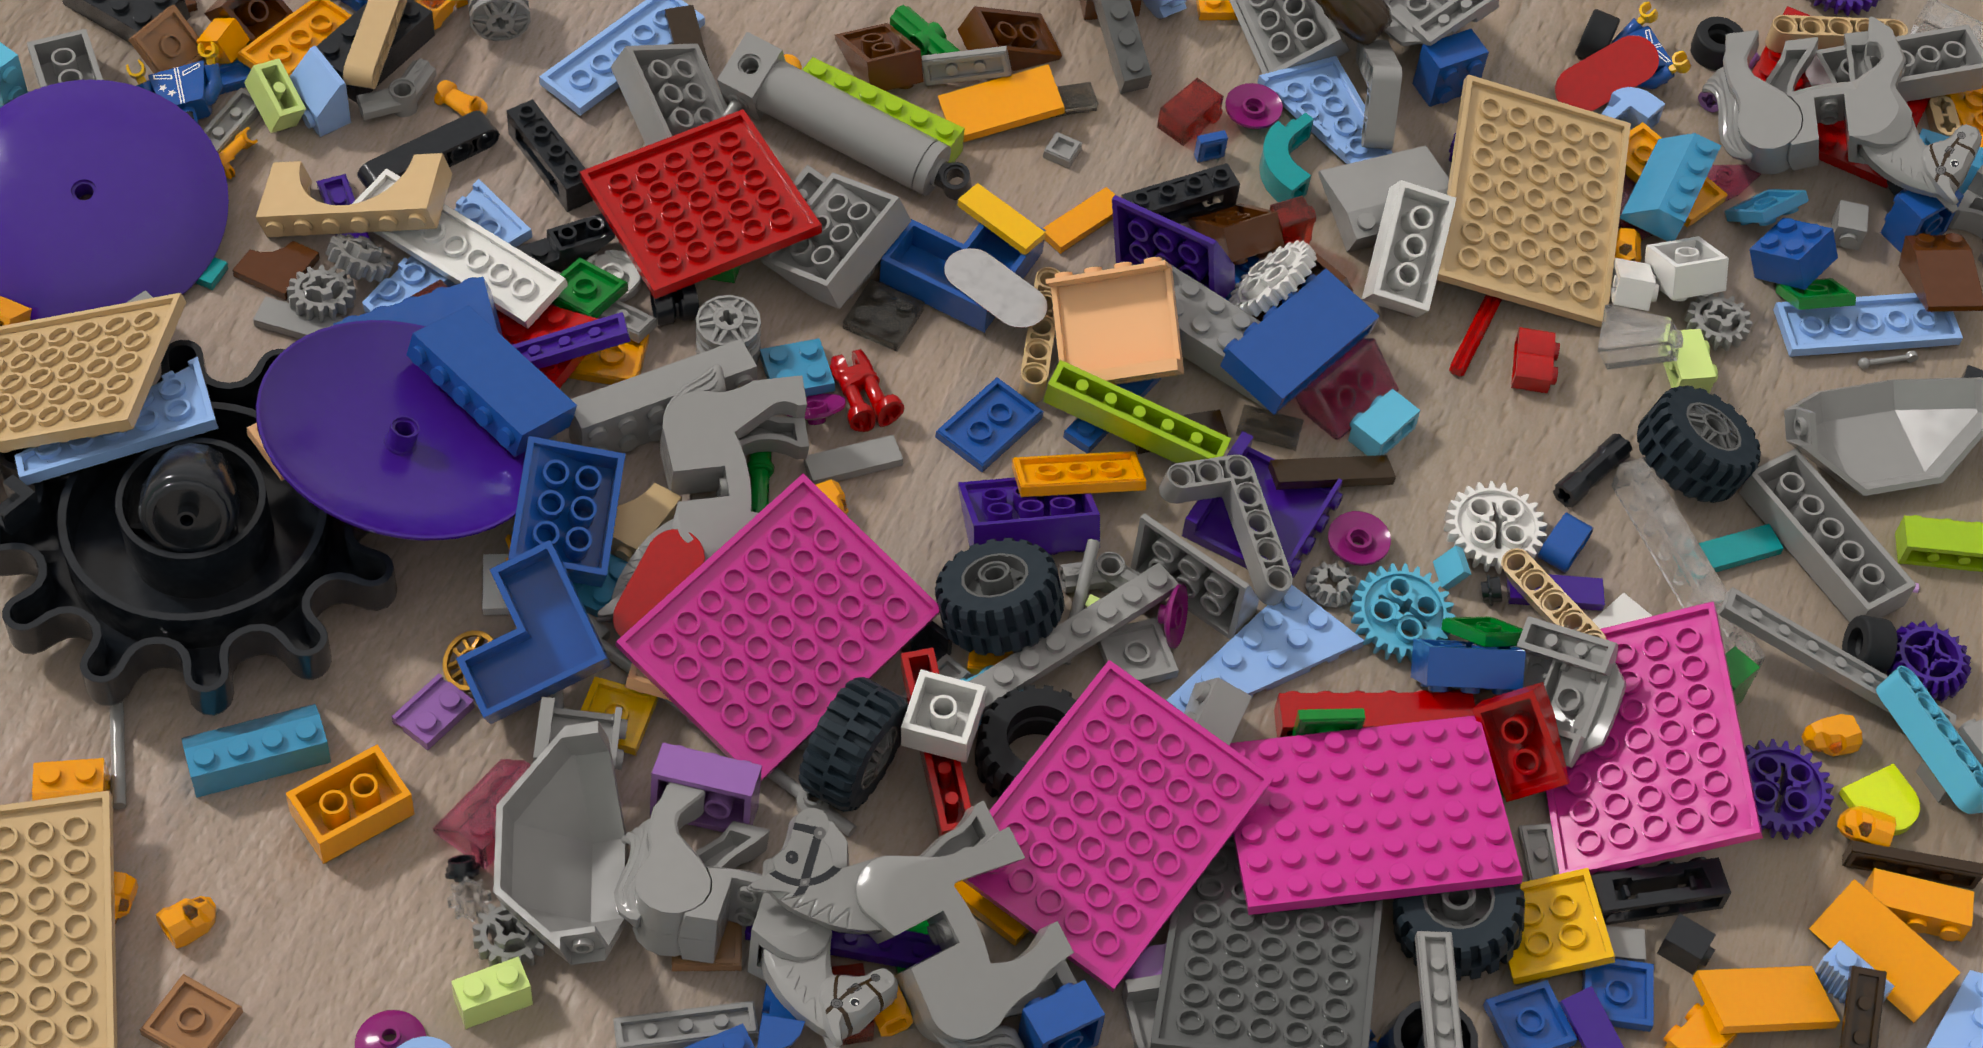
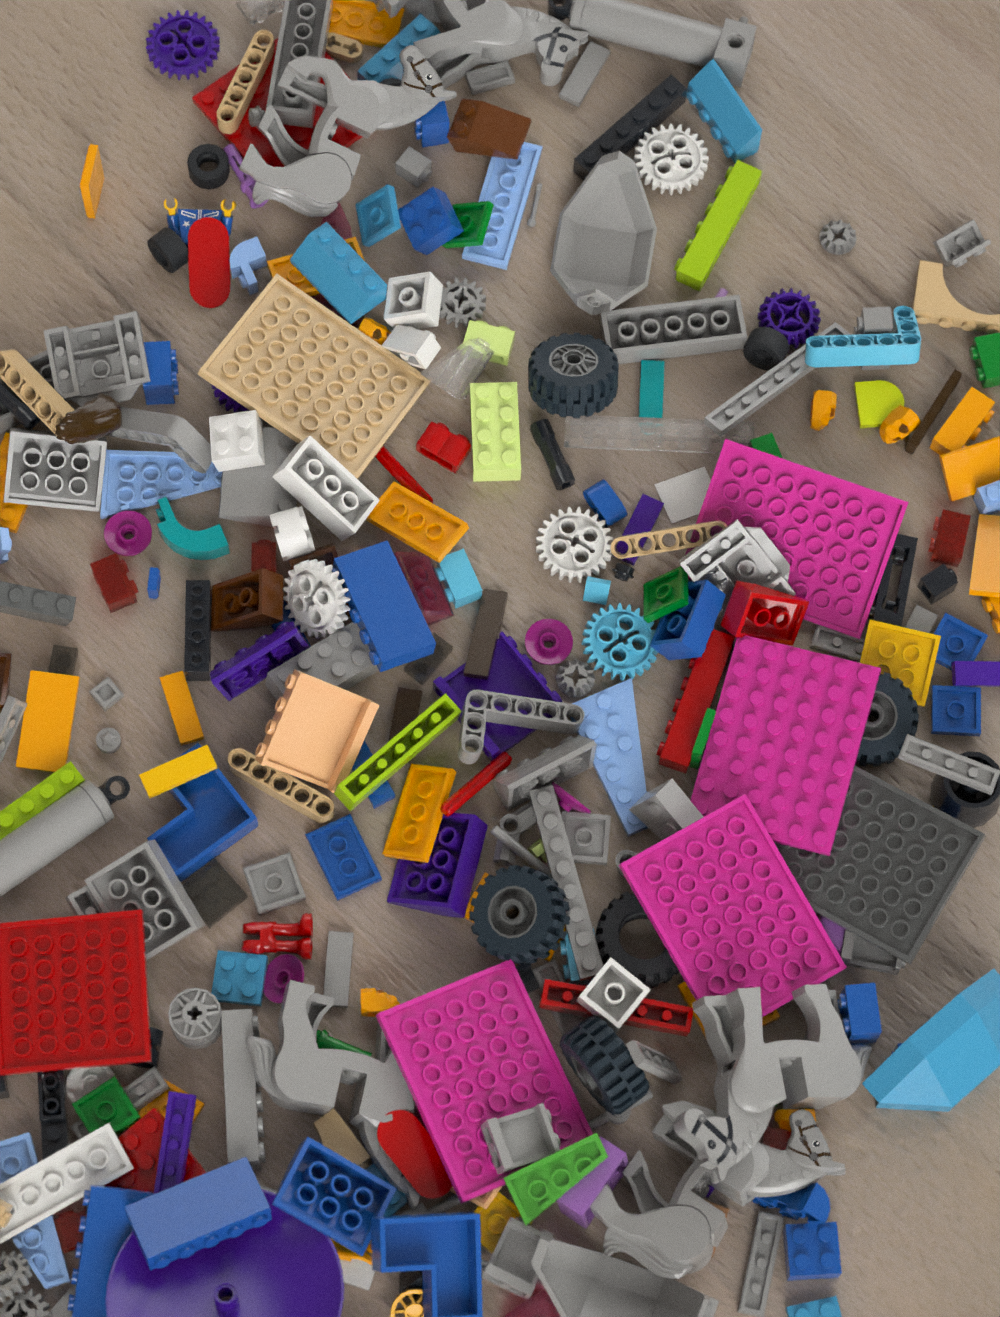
camera: 65 degrees left, 15 degrees up
(687, 725) = (551, 1177): none -> bright green wing
(719, 679) = (520, 1138): none -> light grey panel
(881, 793) = (654, 1062): none -> light grey tile
(924, 369) = (274, 883): none -> light grey tile
(996, 288) = (239, 802): flat silver sticker -> none
(1010, 167) = (108, 740): none -> light grey tile
(1134, 510) = (475, 784): none -> red axle
(1336, 232) = (292, 533): none -> white brick
(1412, 147) = (237, 440): none -> white brick
(1425, 357) = (417, 522): none -> light orange plate
(1583, 402) = (495, 431): none -> yellowish green brick
(1757, 939) = (950, 537): none -> clear red brick
(1809, 794) = (859, 448): dark purple gear -> none

